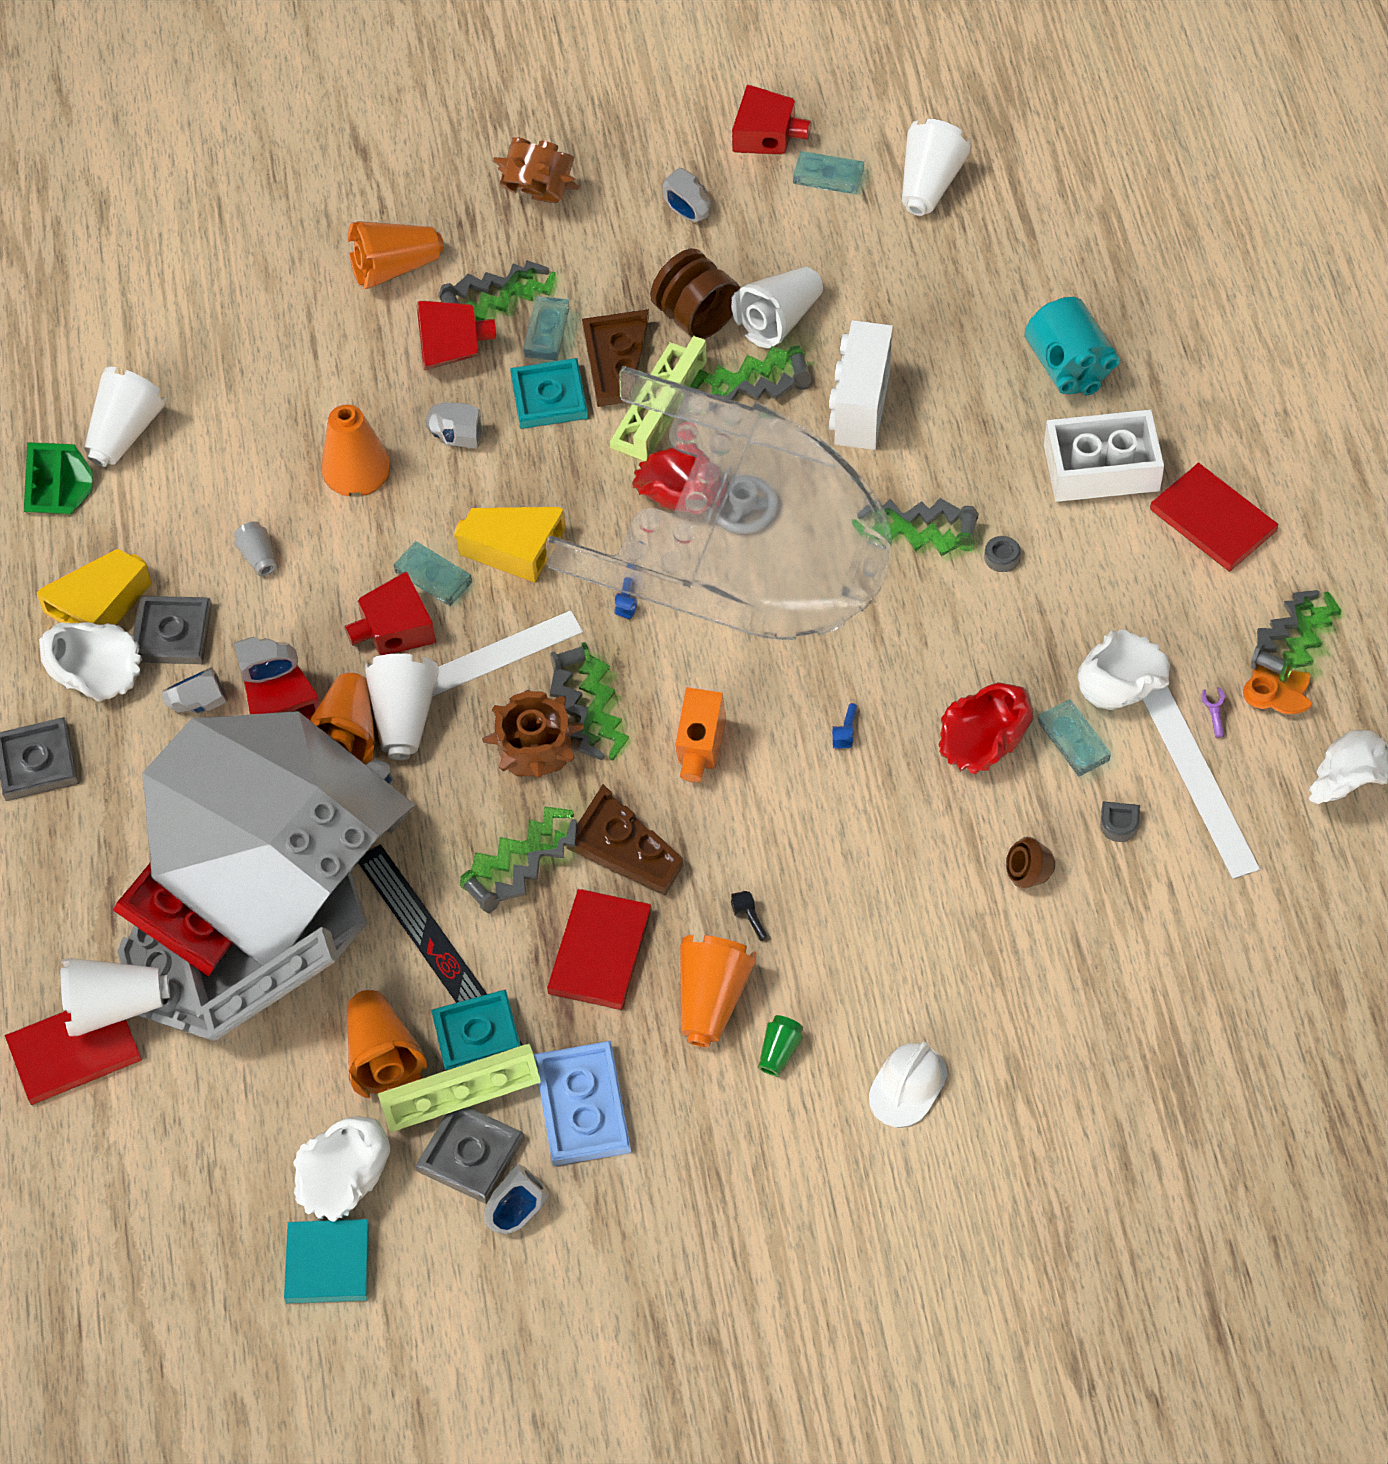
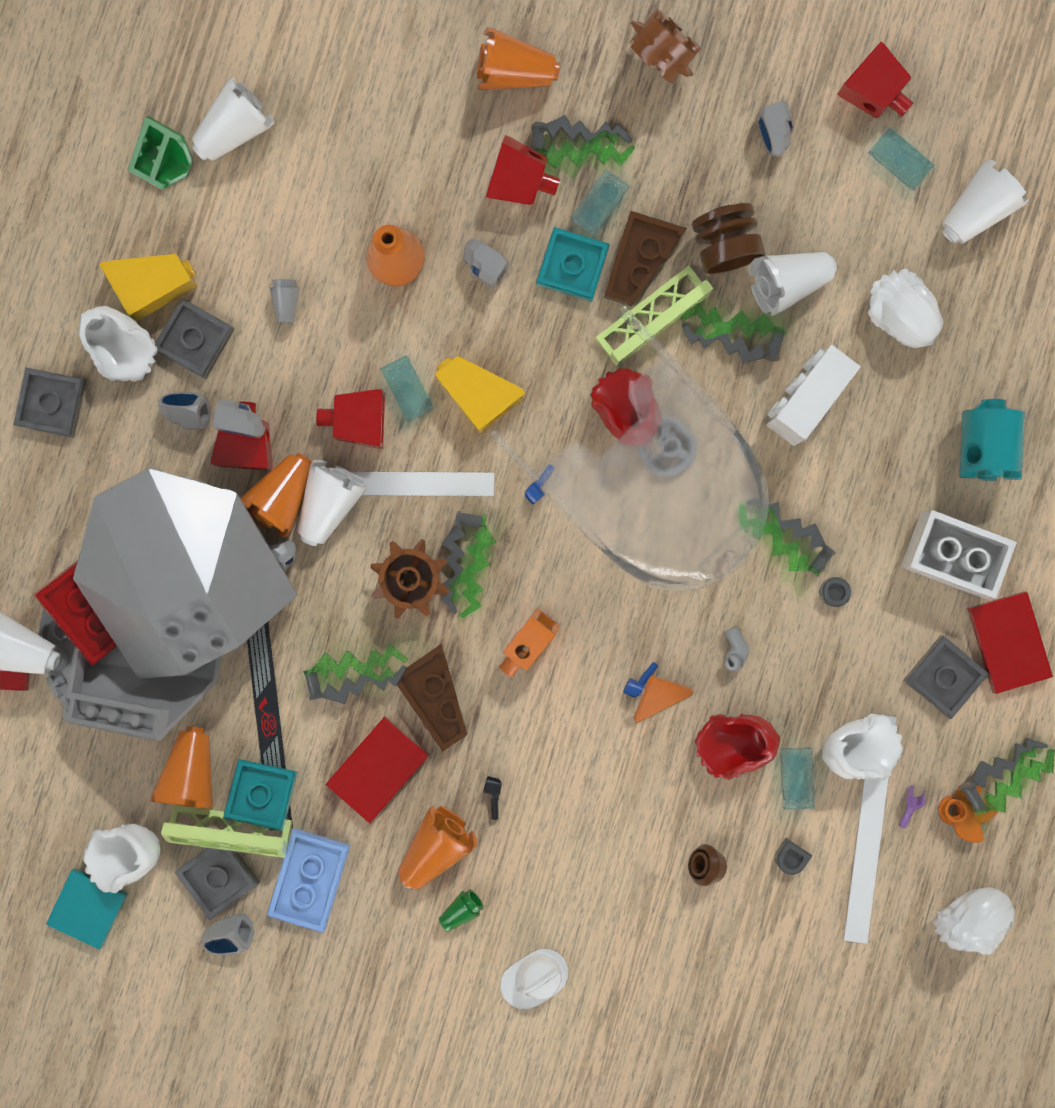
camera: 25 degrees right, 30 degrees up
(875, 726) = (658, 696): none -> orange piece
(912, 283) = (905, 309): none -> white piece
(934, 650) = (738, 651): none -> light grey arm
(1169, 577) = (946, 677): none -> flat silver tile

